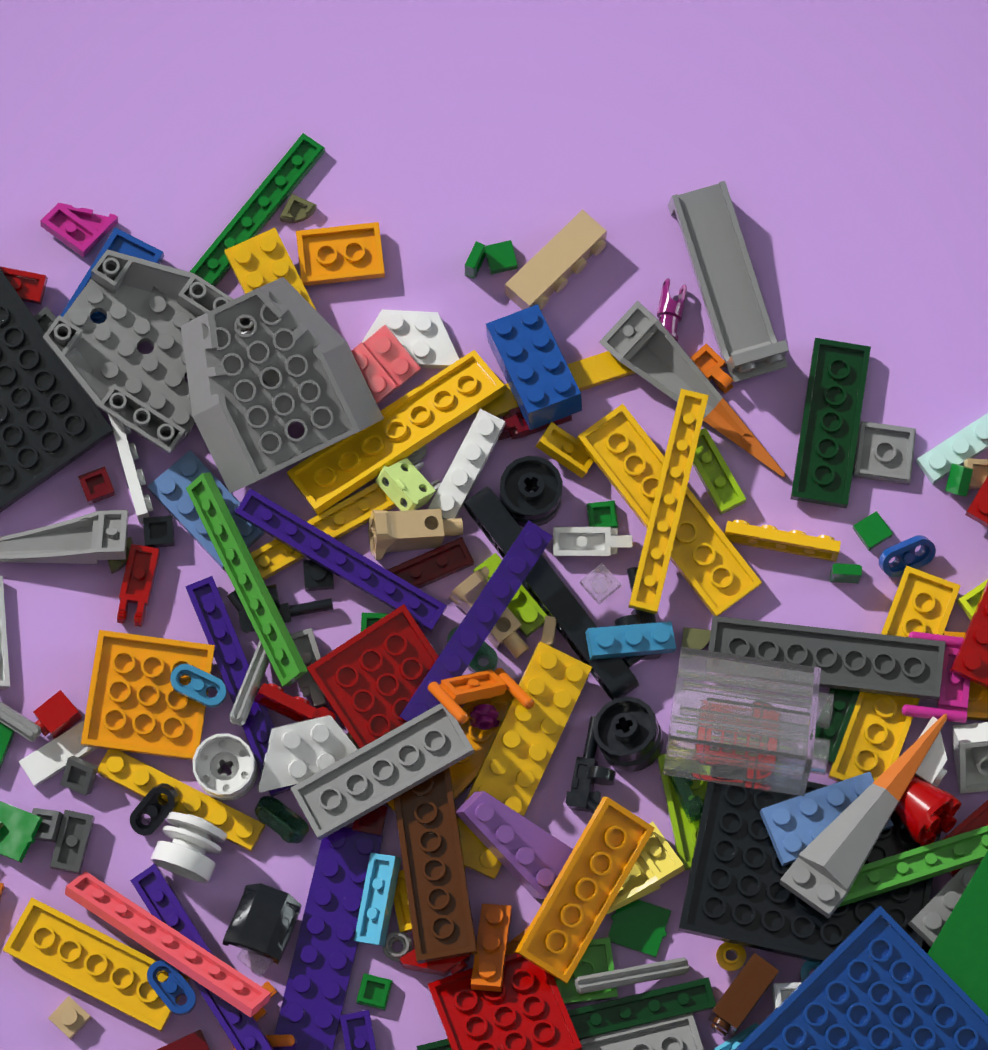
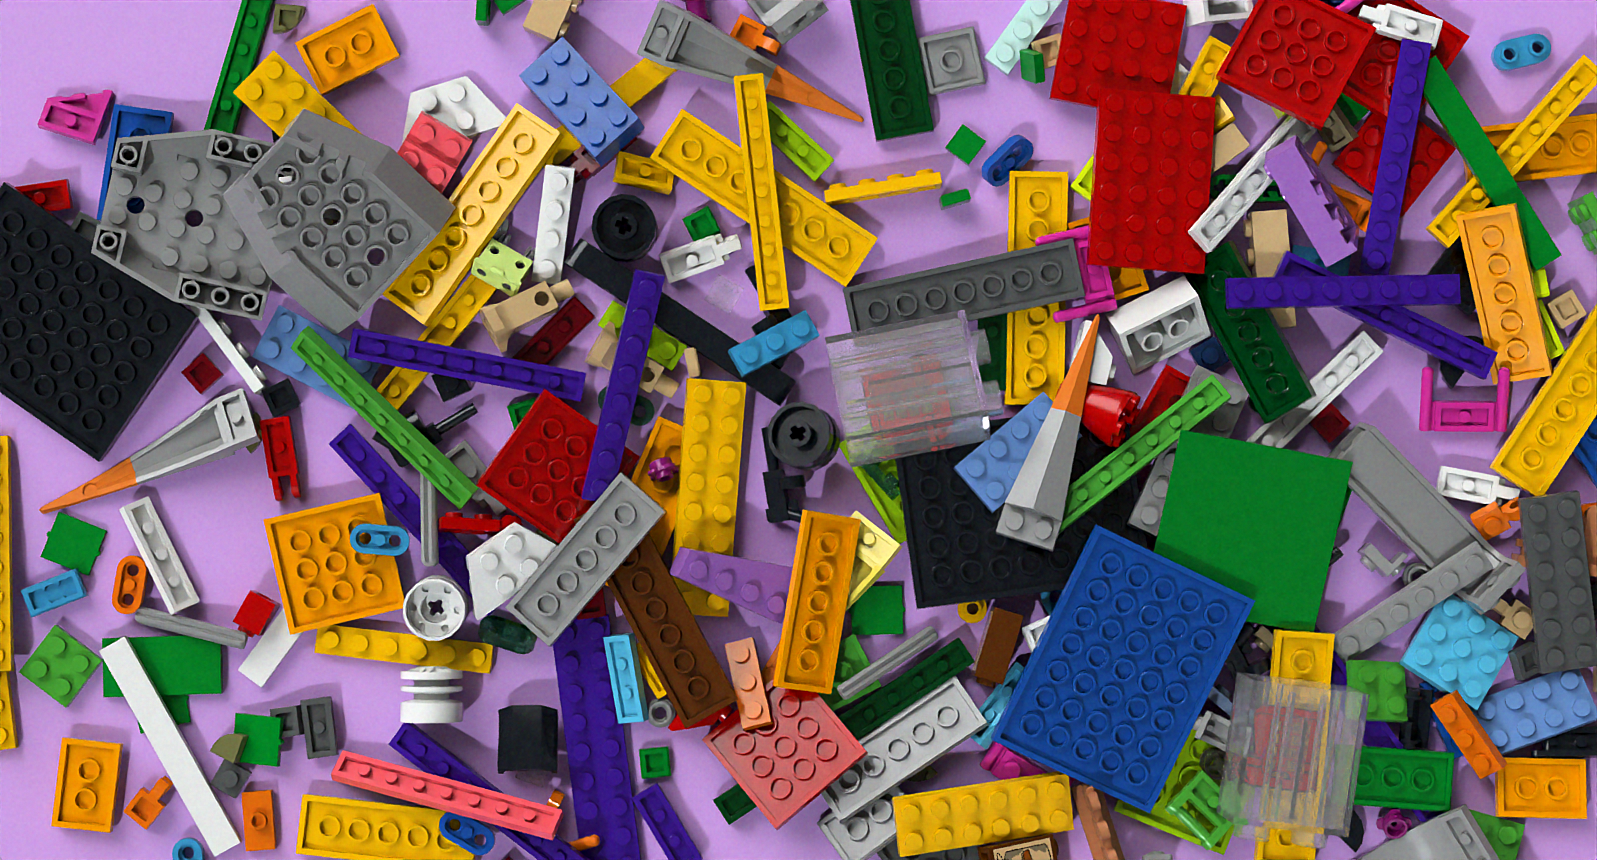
camera: 25 degrees left, 15 degrees up
(79, 775) = (300, 662): dark grey plate -> none
(154, 807) = (385, 668): black plate -> none
(476, 687) = (642, 448): orange plate -> none
(695, 638) = (833, 318): olive tile -> none

